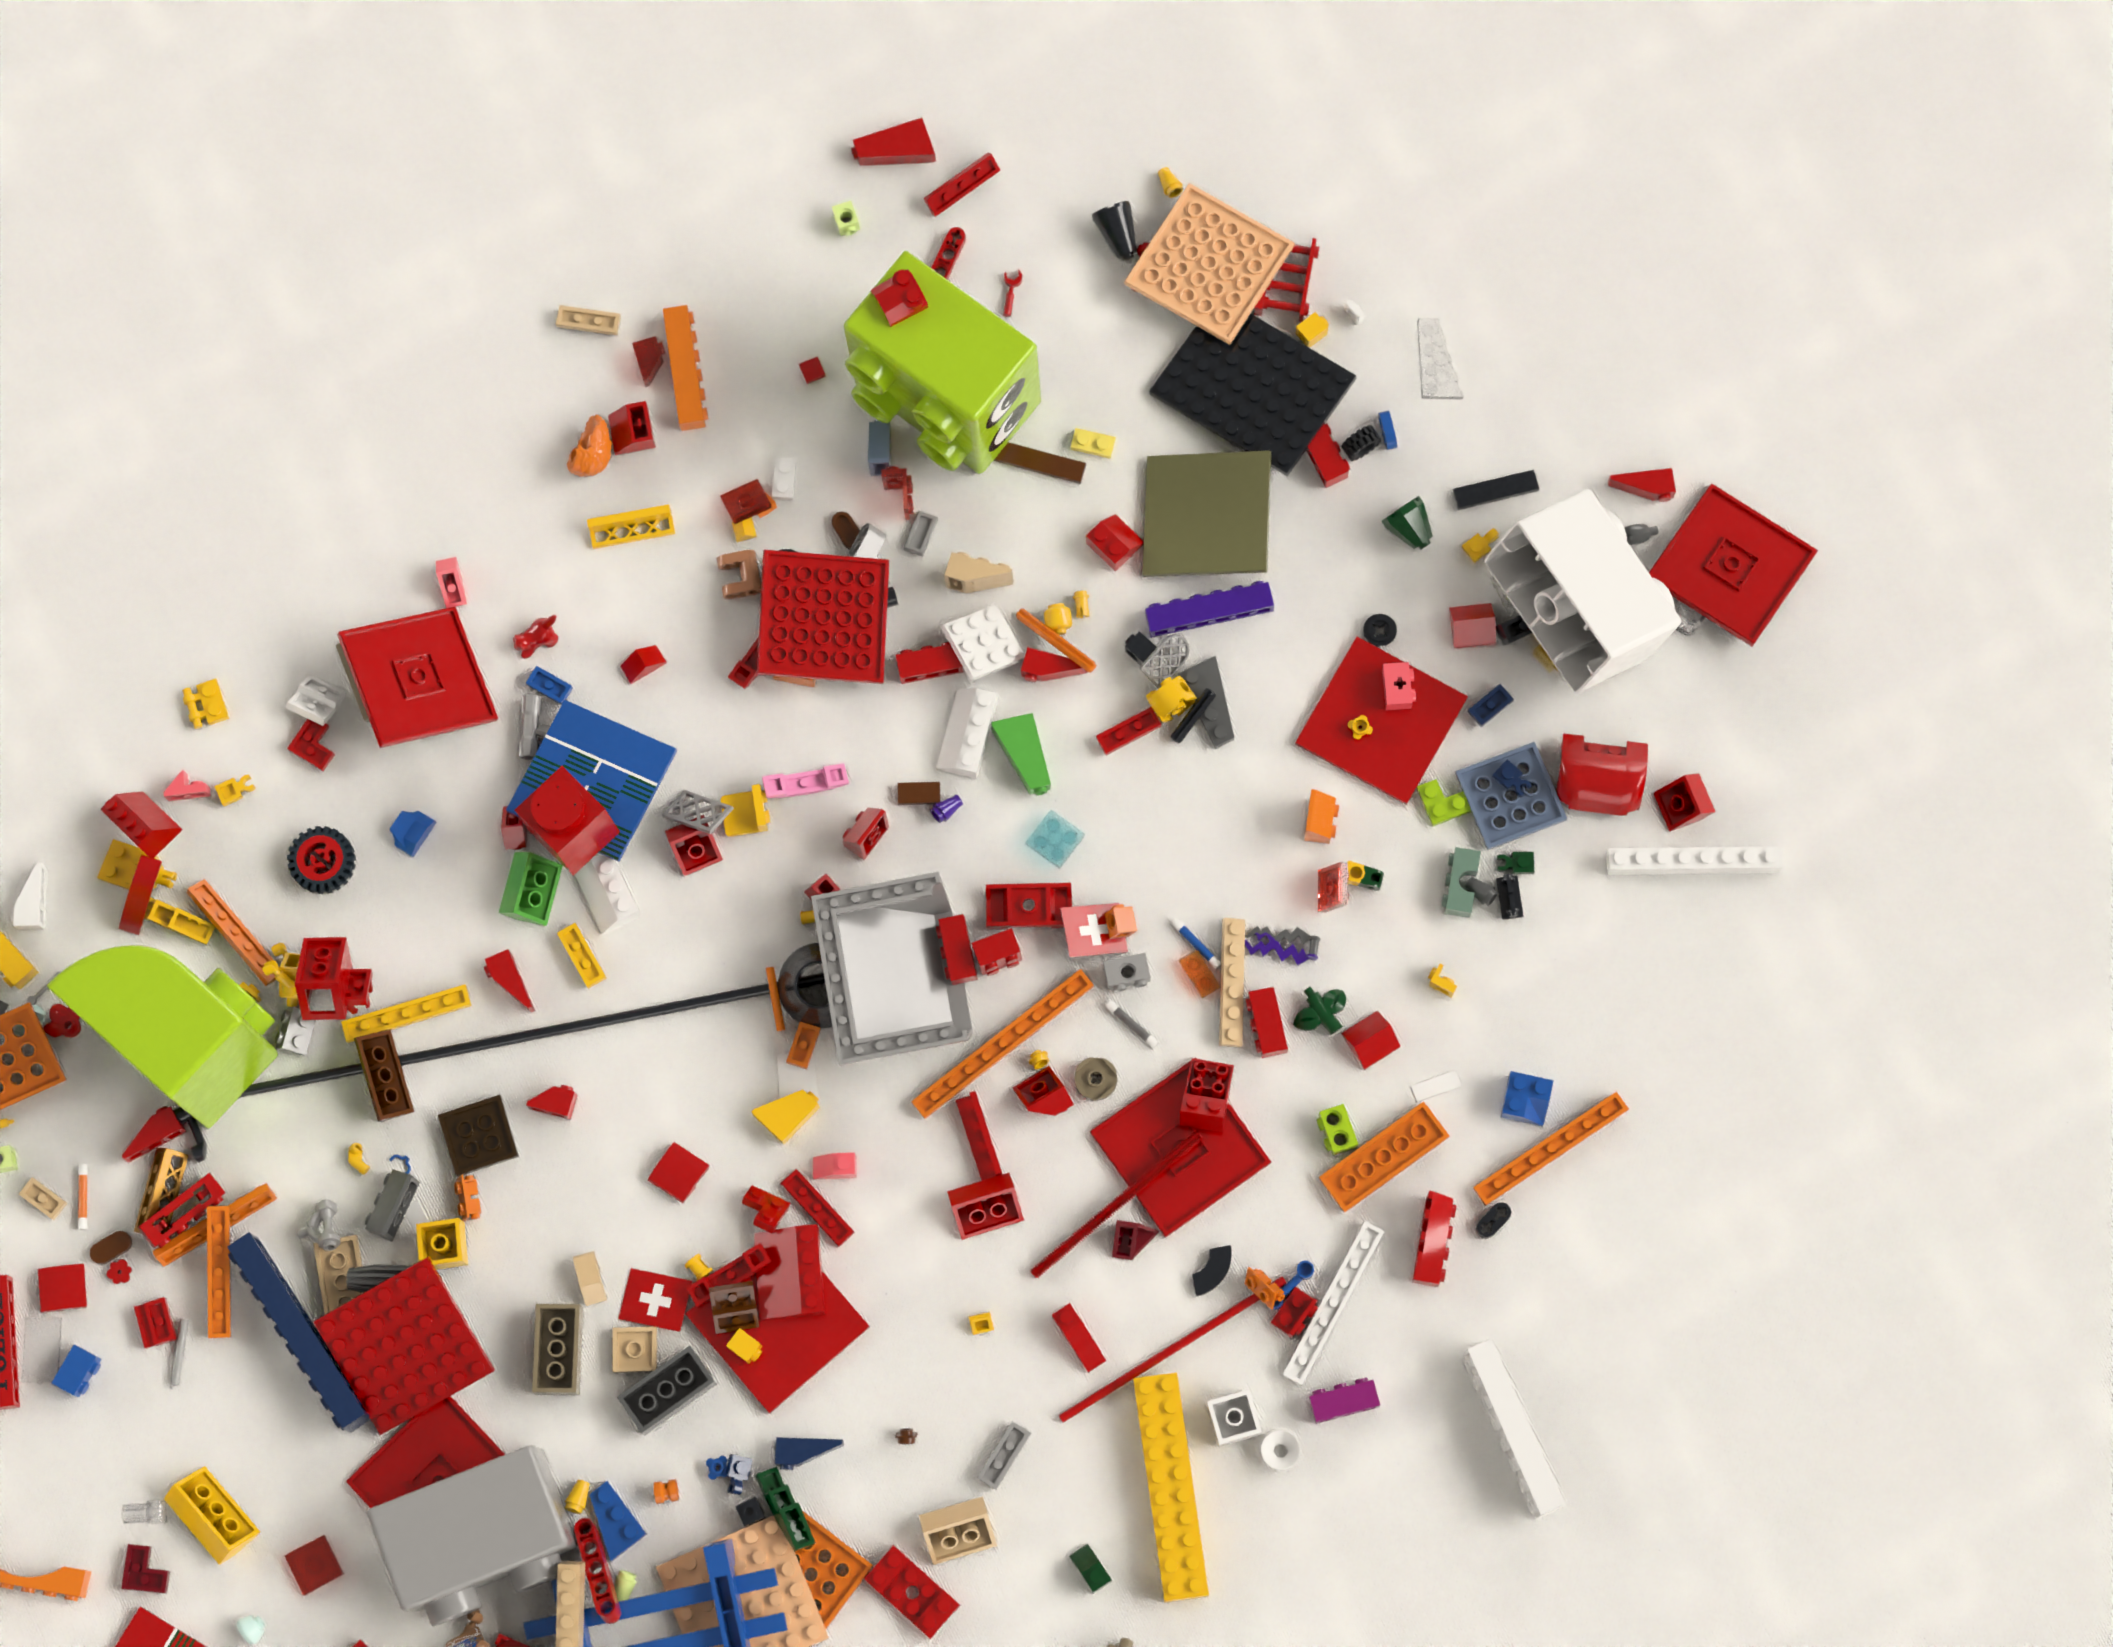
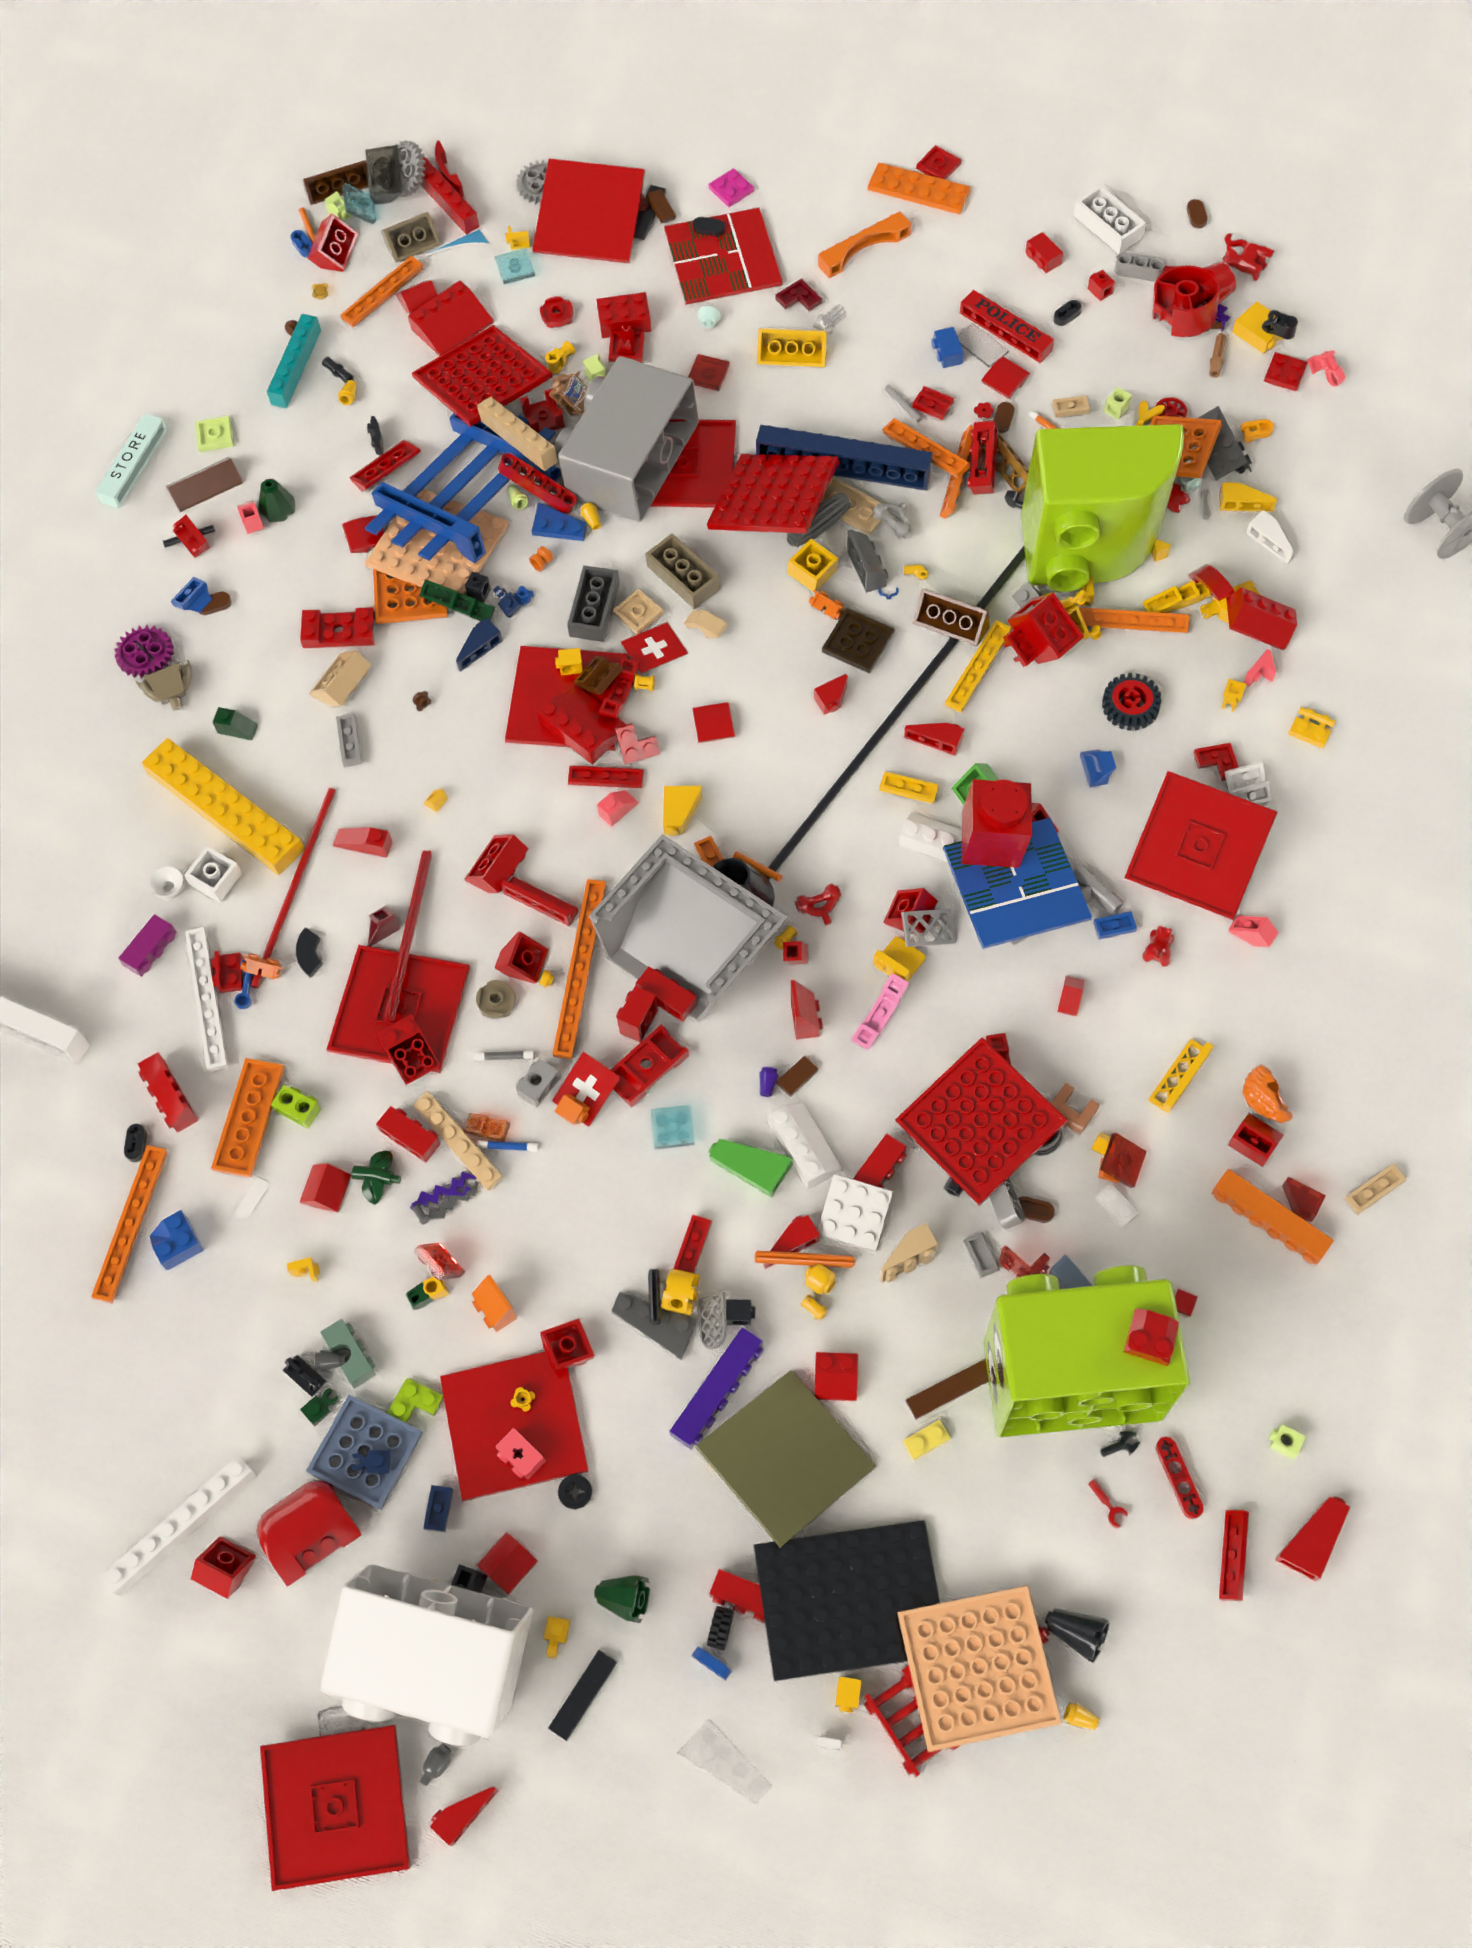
camera: 135 degrees right, 10 degrees down
(770, 928) = (830, 894): none -> red piece
(1292, 735) = (566, 1345): none -> red slope

